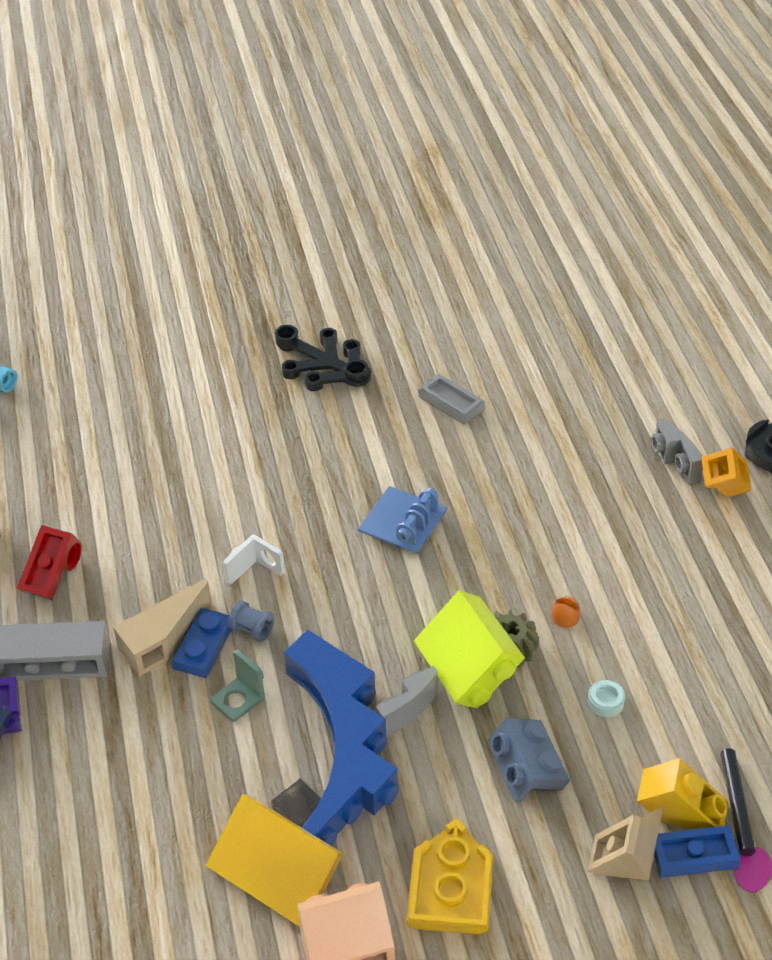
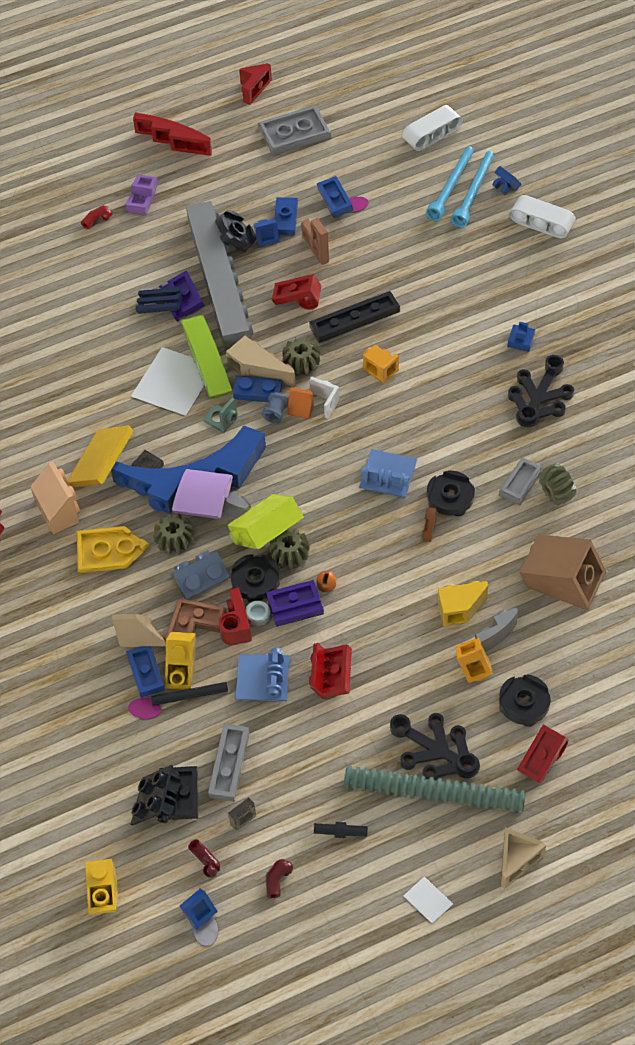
camera: 80 degrees right, 10 degrees up
(46, 305) = (542, 216): none -> white beam
(111, 689) = (206, 356): none -> lime slope
(122, 511) = (354, 316): none -> black plate
(140, 751) = (170, 382): none -> white sticker
(168, 574) = (301, 355): none -> olive gear
(218, 494) = (380, 363): none -> light orange brick
(228, 359) = (521, 337): none -> blue tile
(254, 589) = (300, 403): none -> orange slope
(403, 714) = (202, 493): none -> lavender slope
(450, 778) = (173, 534): none -> olive gear
(455, 475) = (446, 504): none -> black plate
(477, 357) = (557, 484): none -> olive gear
(501, 488) = (430, 517): none -> dark orange tile
(542, 706) = (256, 565): none -> black plate
(598, 783) = (192, 615): none -> nougat tile
(601, 375) = (564, 569): none -> medium nougat slope
(601, 648) = (295, 603): none -> dark purple plate
(621, 715) = (235, 618): none -> red plate
(631, 478) = (461, 602): none -> yellow slope
(718, 705) = (263, 676): none -> medium blue hinge
(721, 621) = (330, 670): none -> red bracket

